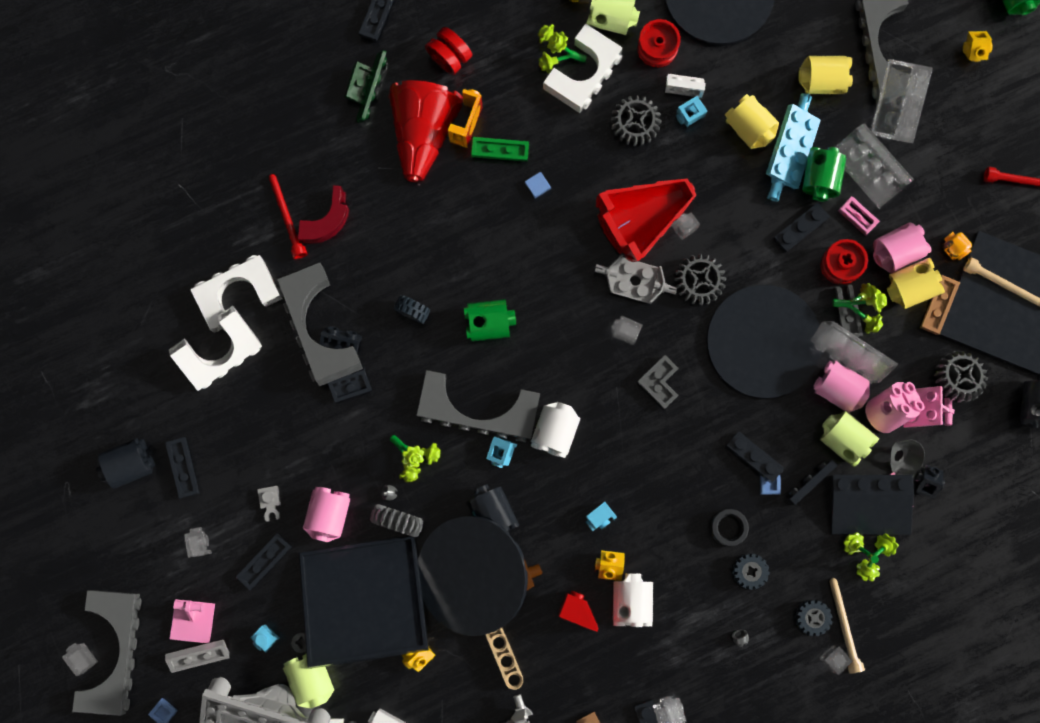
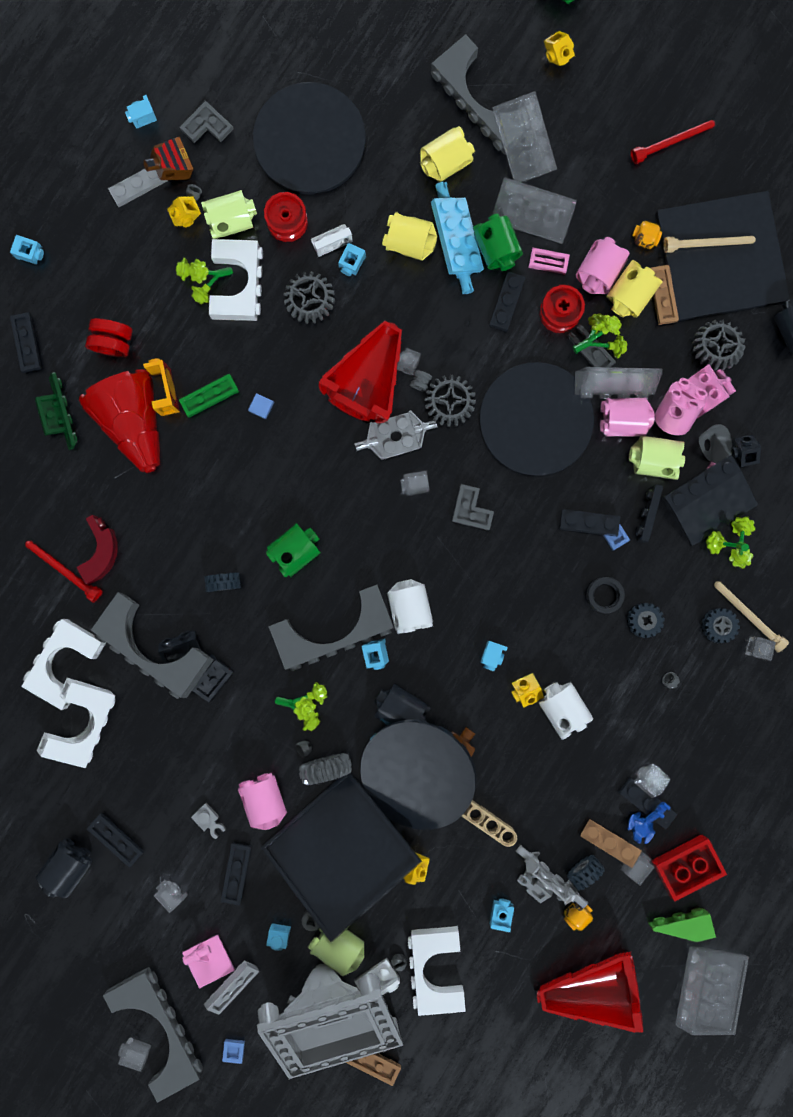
camera: 30 degrees left, 5 degrees up
(577, 610) = (524, 749): red slope -> none
(686, 247) = (421, 380): none -> dark grey wheel

